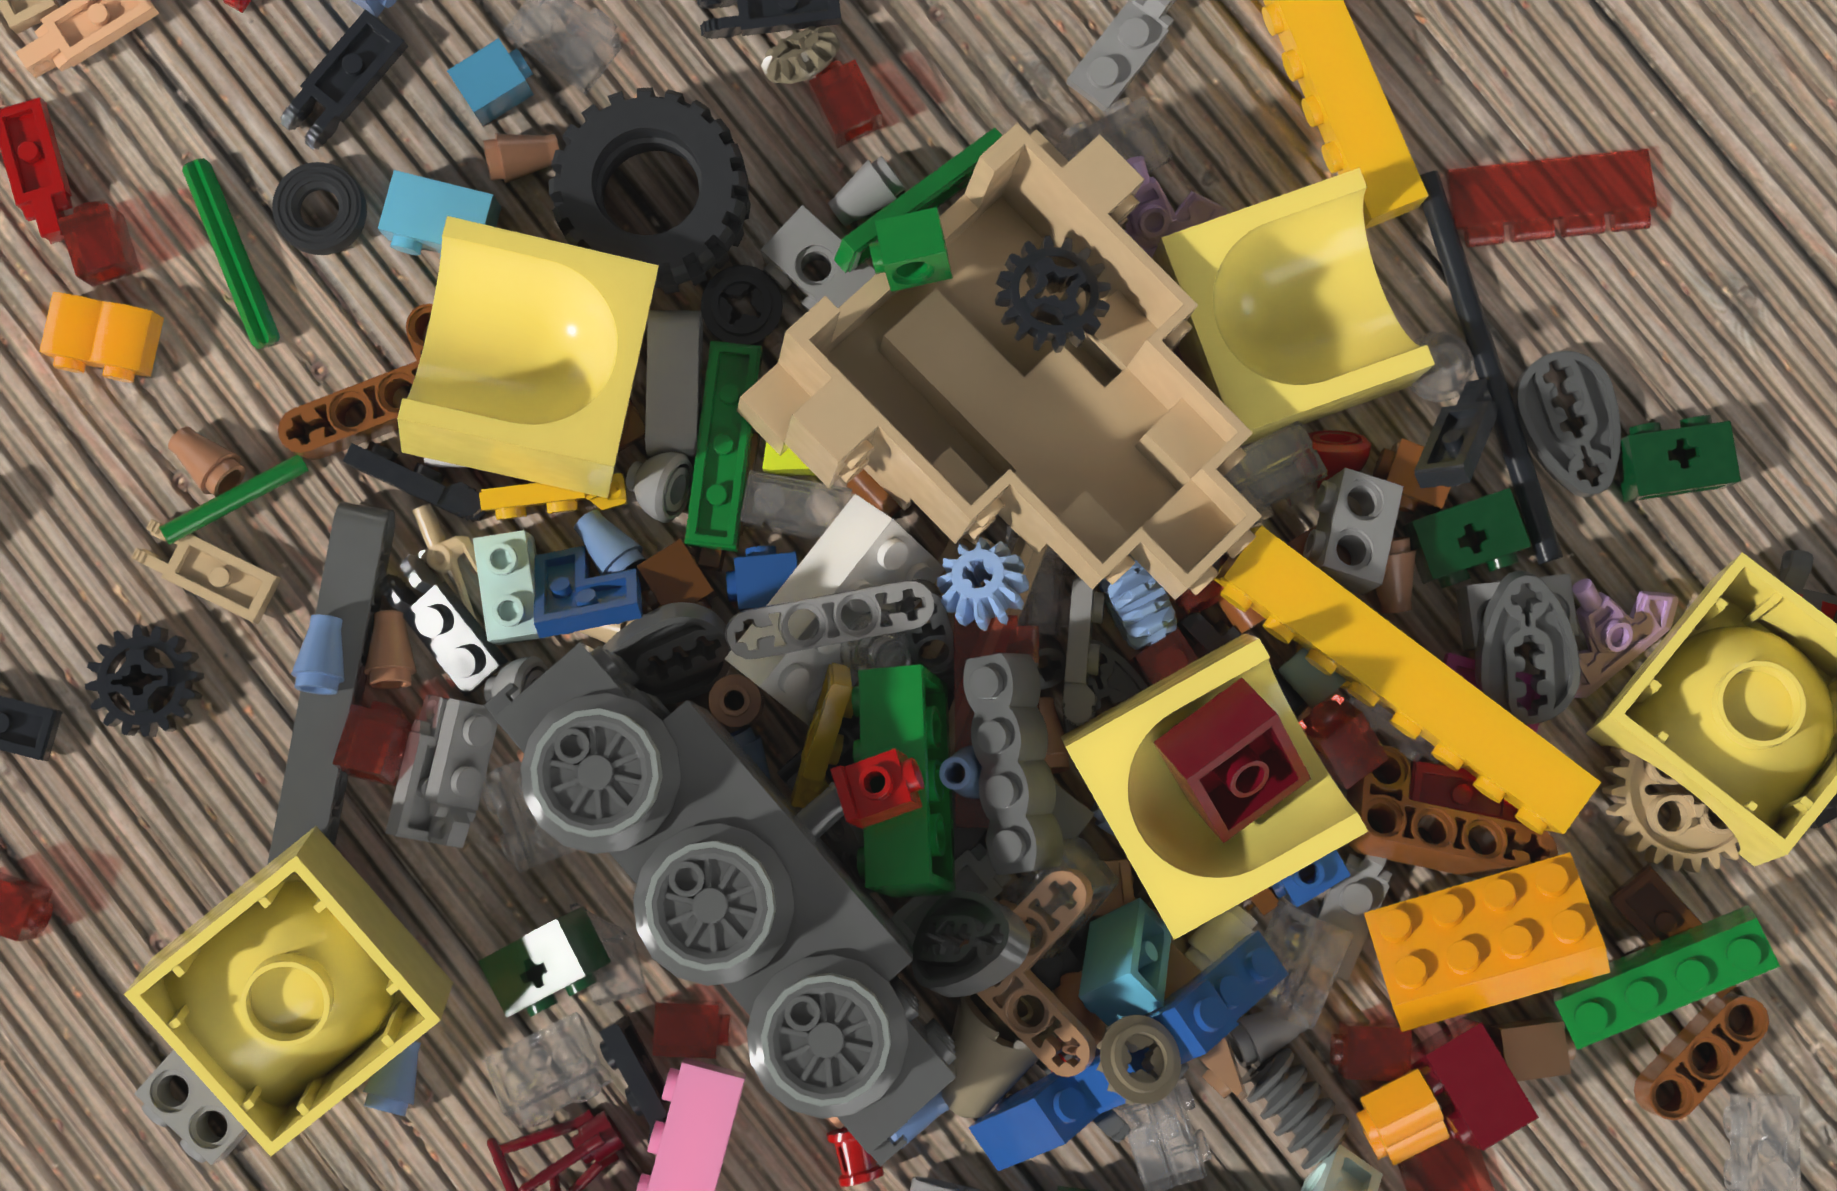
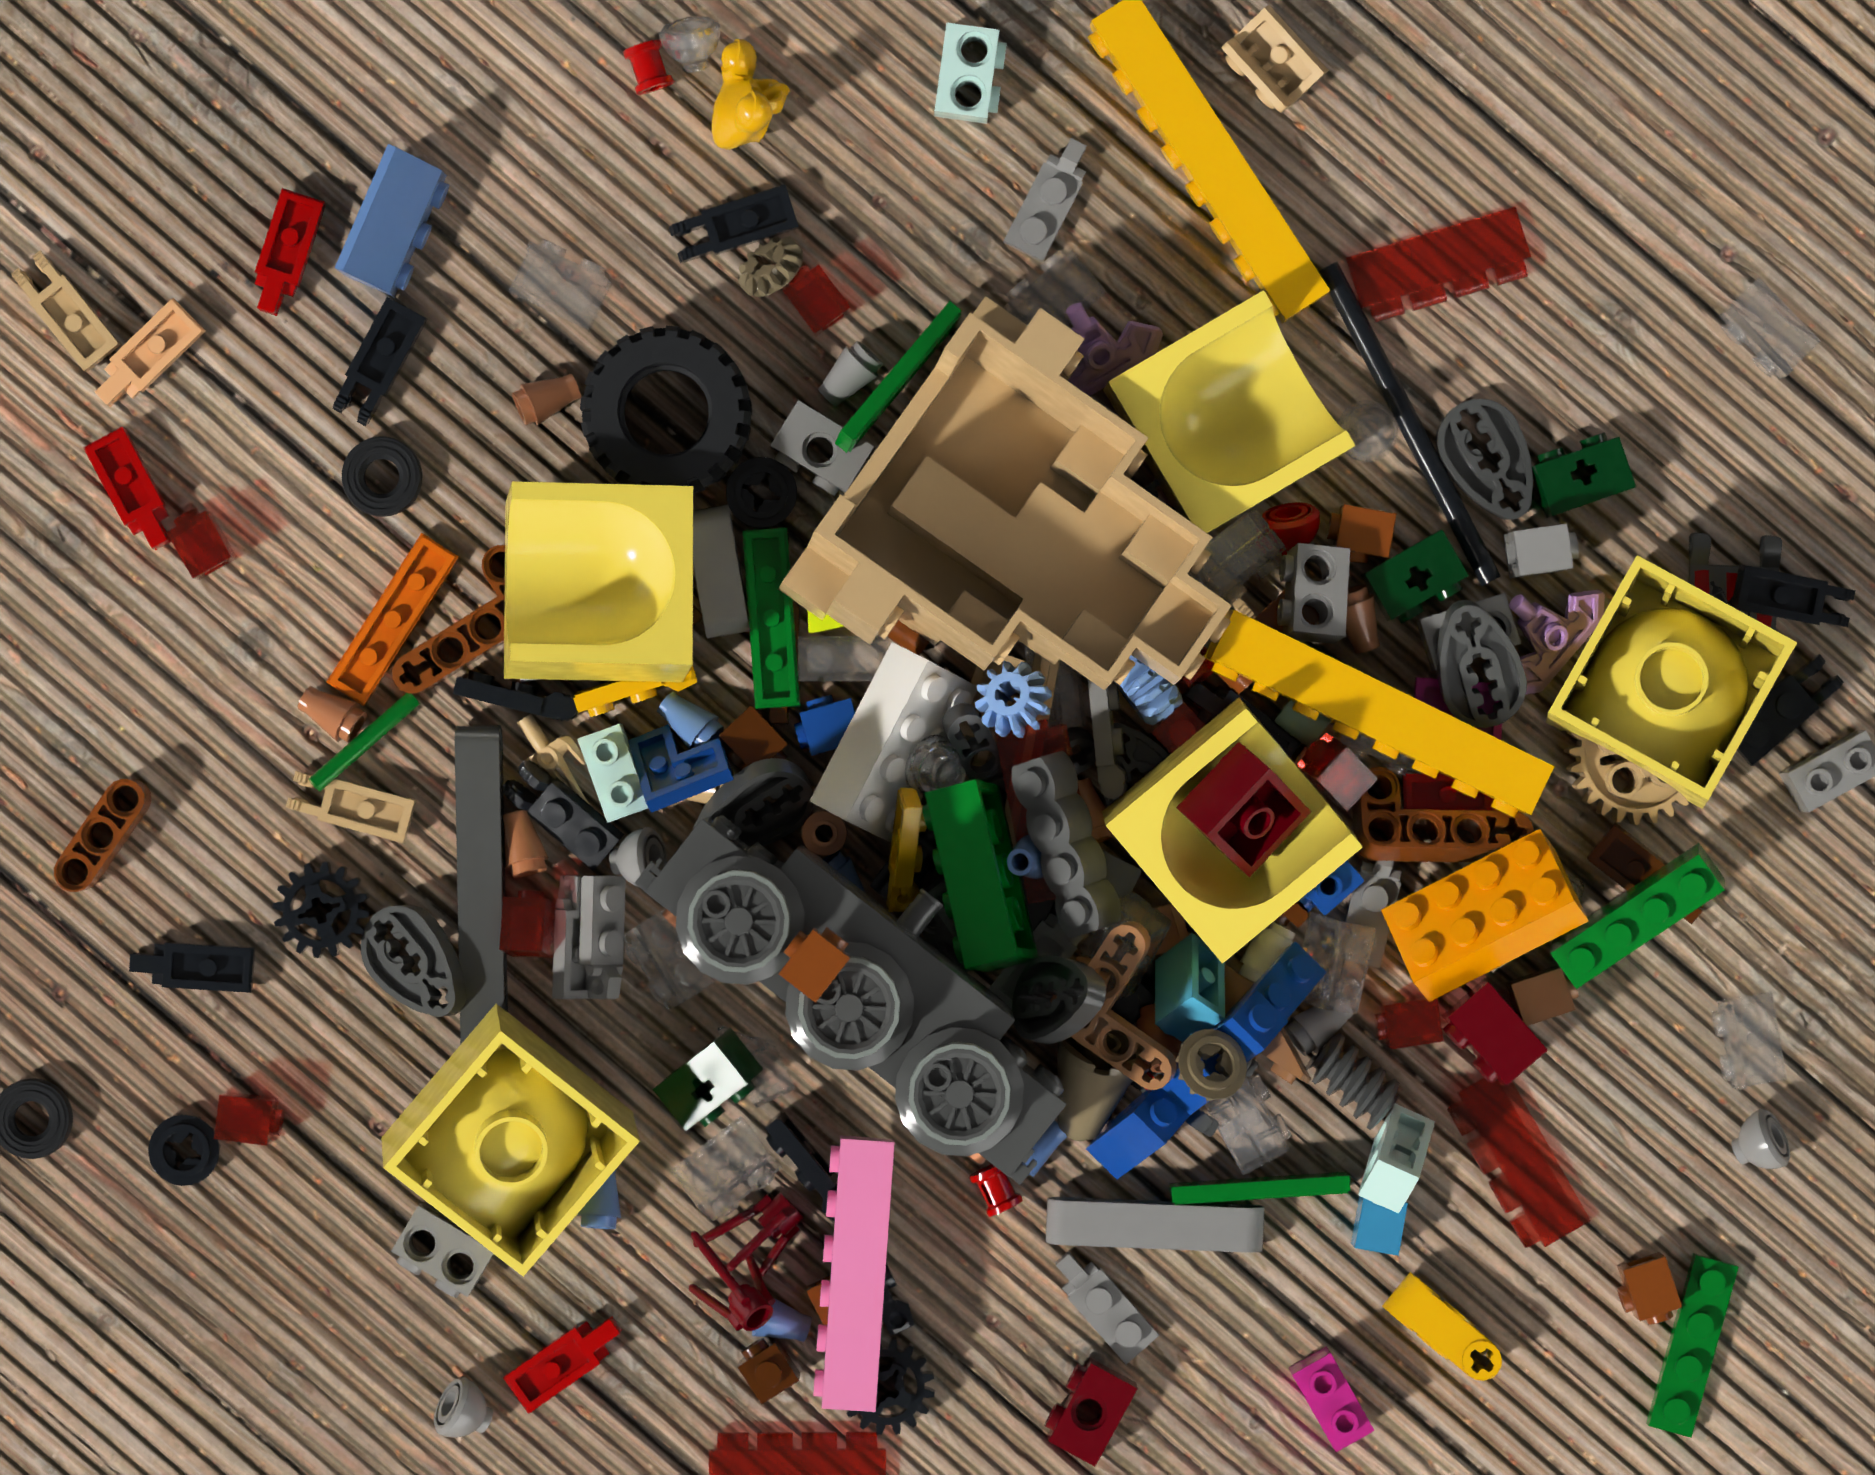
camera: 10 degrees left, 5 degrees up
(101, 335) = (220, 623): light orange brick -> none
(212, 769) = (394, 971): none -> dark grey piece
(231, 253) = (314, 529): green axle -> none
(298, 370) = (393, 619): none -> orange tile
(320, 659) = (471, 862): medium blue cone -> none
(419, 208) = (485, 466): medium azure brick -> none
(492, 81) = (509, 338): dark azure brick -> none
(662, 484) = (724, 660): light grey brick -> none
(676, 839) = (814, 961): none -> dark orange brick
(690, 1028) = (839, 1111): clear red brick -> none
(830, 625) = (894, 760): light grey beam -> none
(897, 797) = (978, 890): red brick -> none
(911, 249) = (900, 430): green brick -> none
(1057, 272) = (1013, 431): black gear -> none
(1402, 1118) = (1441, 1073): light orange brick -> none
(1458, 438) = (1390, 496): black hinge -> none
(1618, 532) = (1540, 550): none -> light grey brick
(1725, 1049) = (1704, 964): dark orange beam -> none

